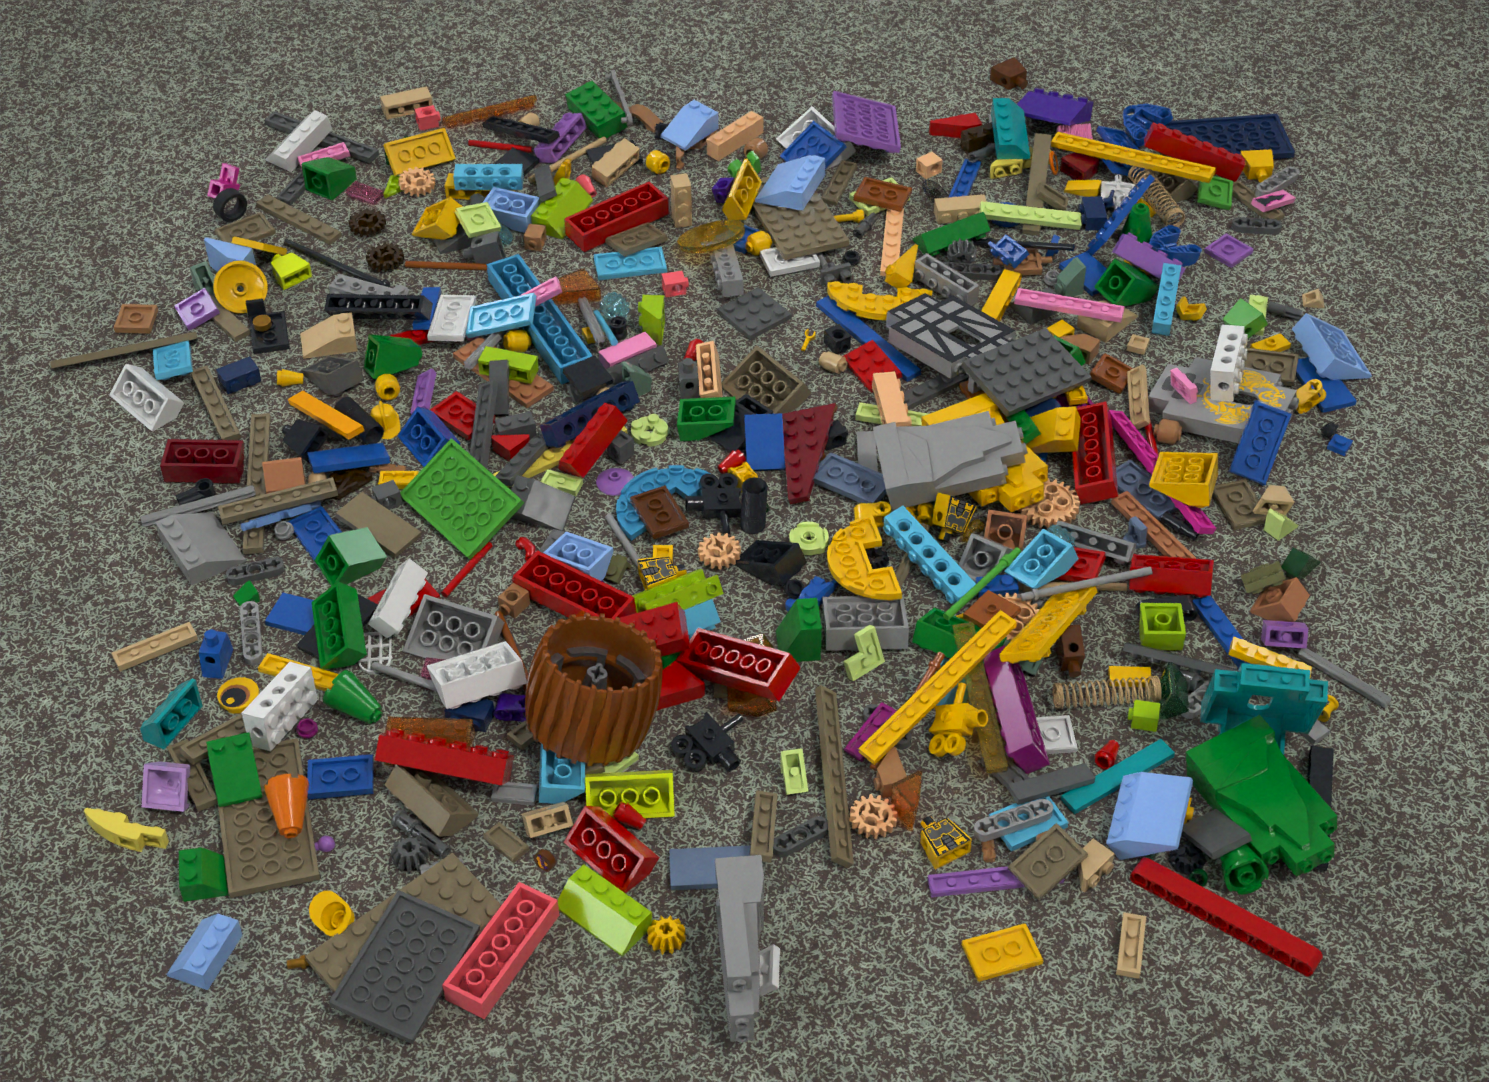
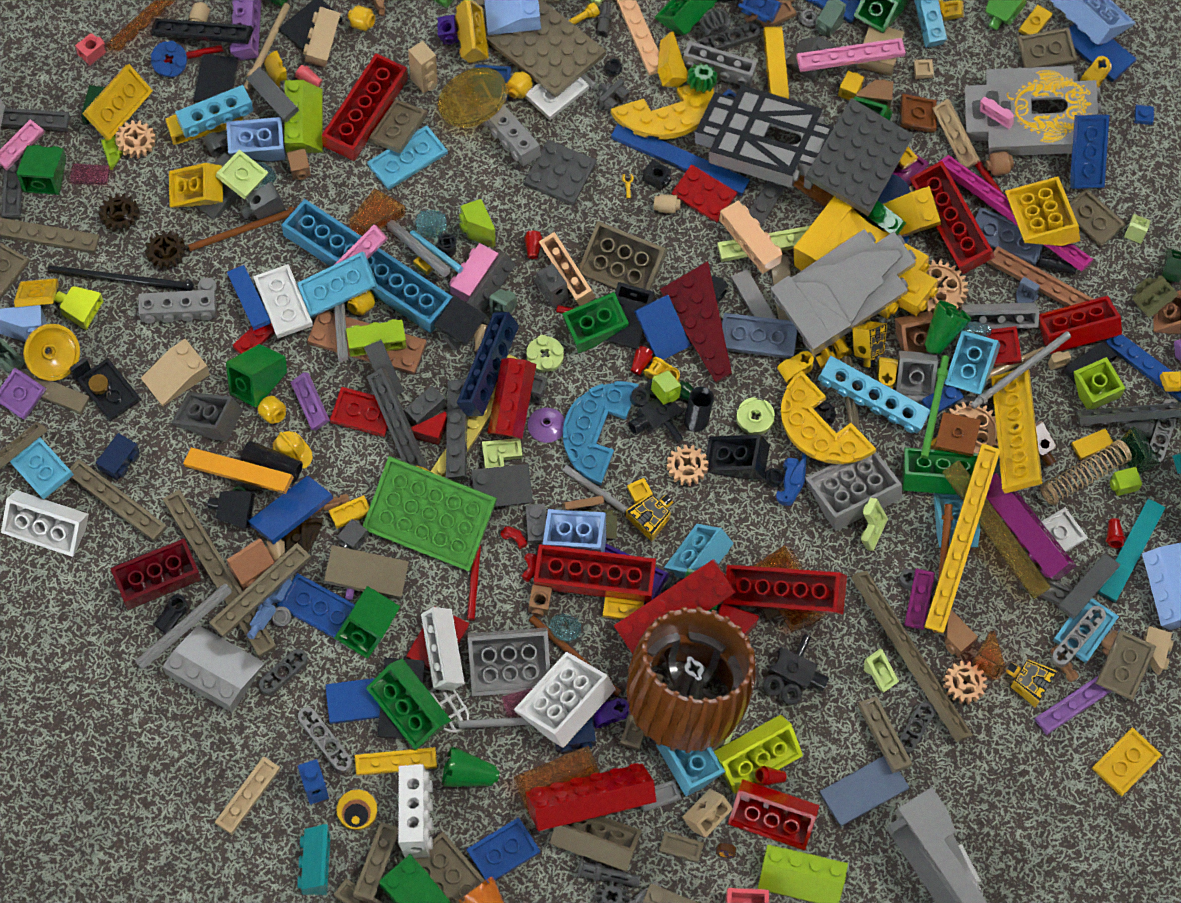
camera: 30 degrees left, 20 degrees up
(246, 593) = (293, 702): green slope -> none
(289, 378) = (167, 438): yellow cone -> none
(307, 728) = (441, 816): magenta plate -> none
(380, 306) = (208, 321): black brick -> none
(405, 102) = (56, 36): tan brick -> none
(425, 435) = (348, 453): blue slope -> none
(482, 133) = (159, 55): none -> blue plate
(529, 634) = (560, 631): none -> clear light blue gear
(604, 537) = (582, 503): none -> medium nougat tile
(659, 512) = (613, 447): reddish brown tile -> none
(666, 934) = (862, 880): yellow gear -> none
(674, 283) = (467, 168): coral brick -> none
(686, 590) = (672, 527): lime fence -> none
(733, 479) = (666, 387): none -> lime brick
(801, 631) = (810, 526): green slope -> none
(921, 281) = (701, 77): none -> green gear
(953, 723) = (989, 563): yellow piece -> none
(955, 546) = (887, 371): none -> yellow piece
(972, 526) = (890, 338): clear yellow arm -> none
(1028, 522) = (945, 326): none -> green cone
(1134, 595) = (1059, 359): none -> tan plate
(1227, 363) = (1028, 75): white brick -> none
(1275, 498) = (1122, 206): tan slope -> none
(1329, 429) = (1129, 102): black plate -> none

